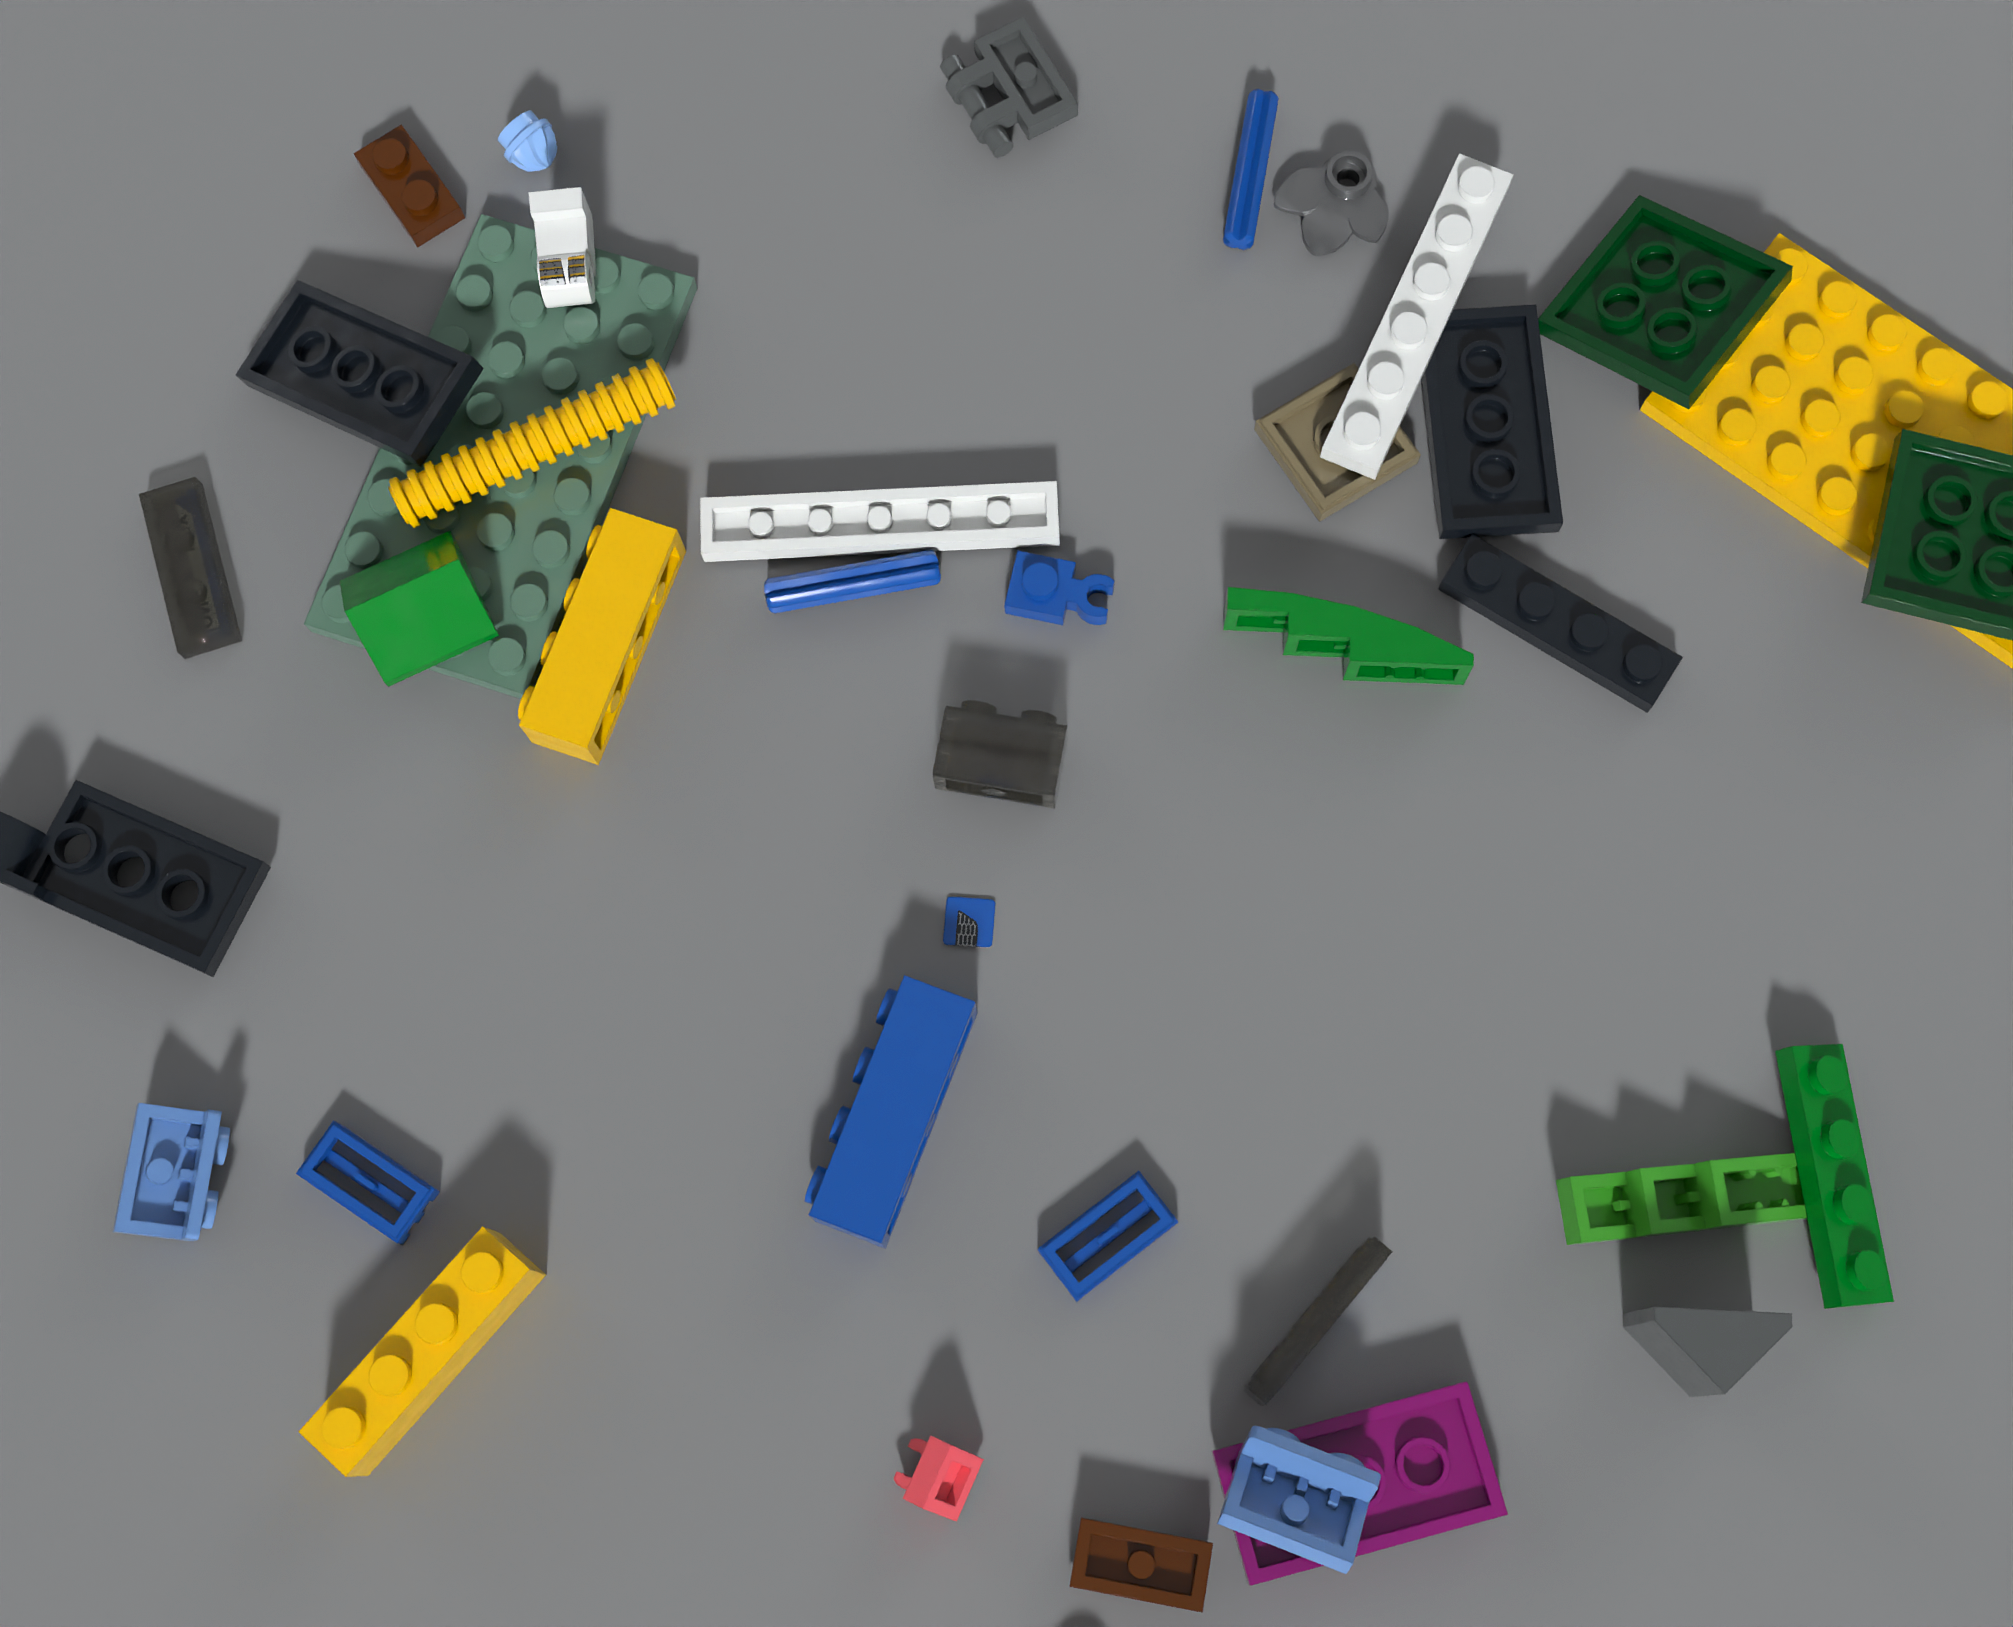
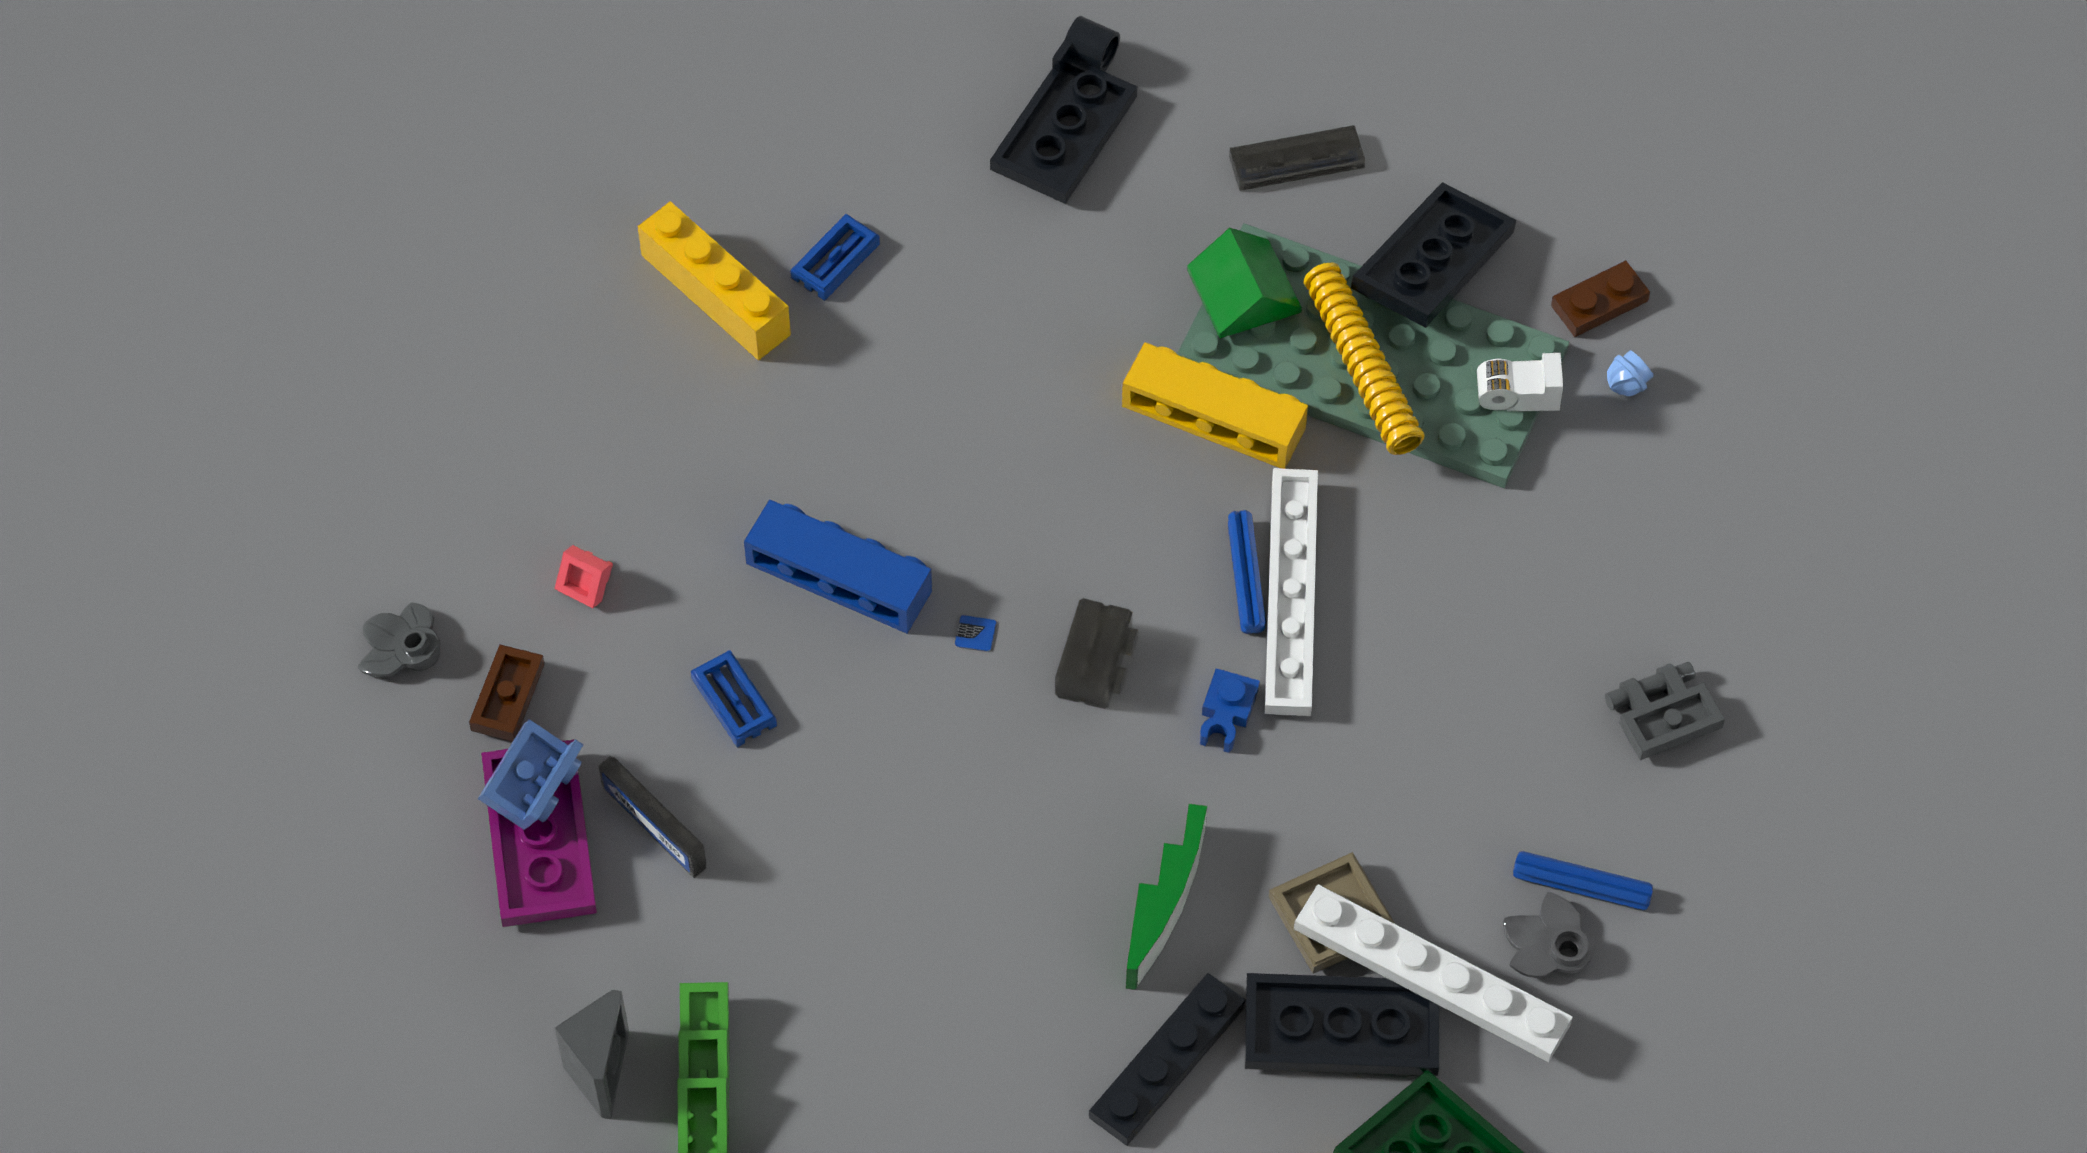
camera: 90 degrees right, 15 degrees down
(170, 1172) = (855, 140): medium blue bracket -> none

